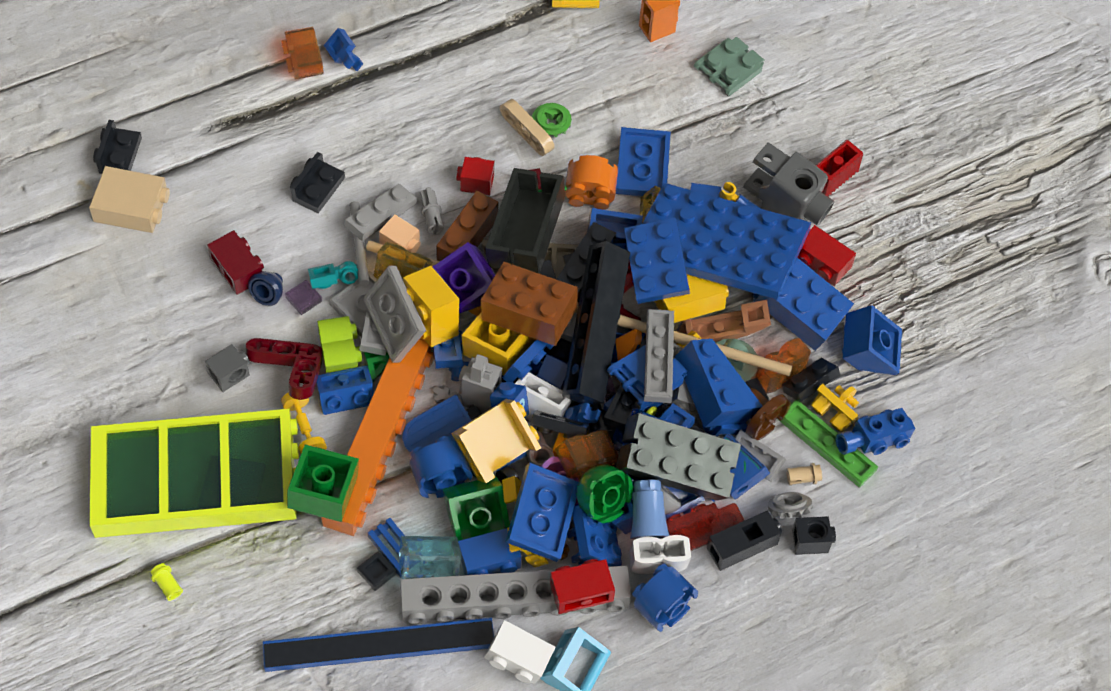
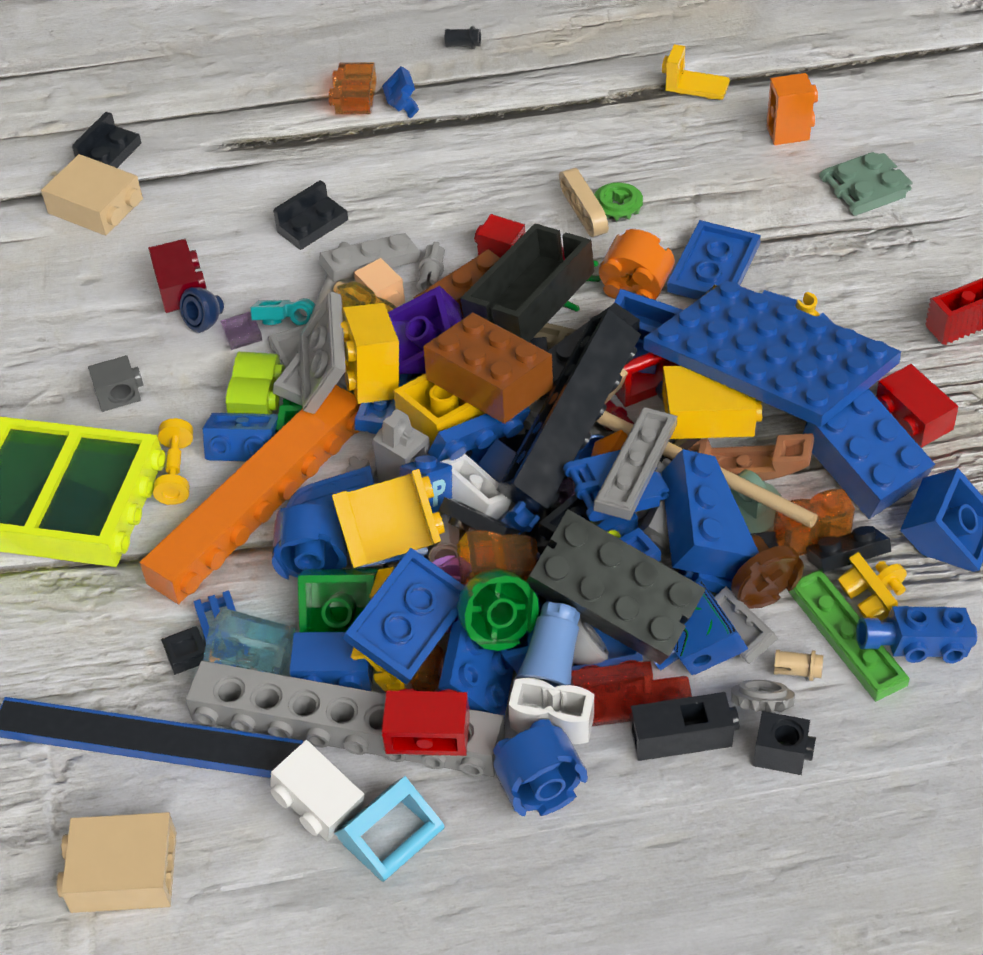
camera: 25 degrees right, 10 degrees down
(300, 357) = (198, 391): dark red beam -> none
(322, 483) = (149, 520): green brick -> none
(657, 260) = (674, 352): blue plate -> none
(795, 185) = (894, 310): dark grey piece -> none

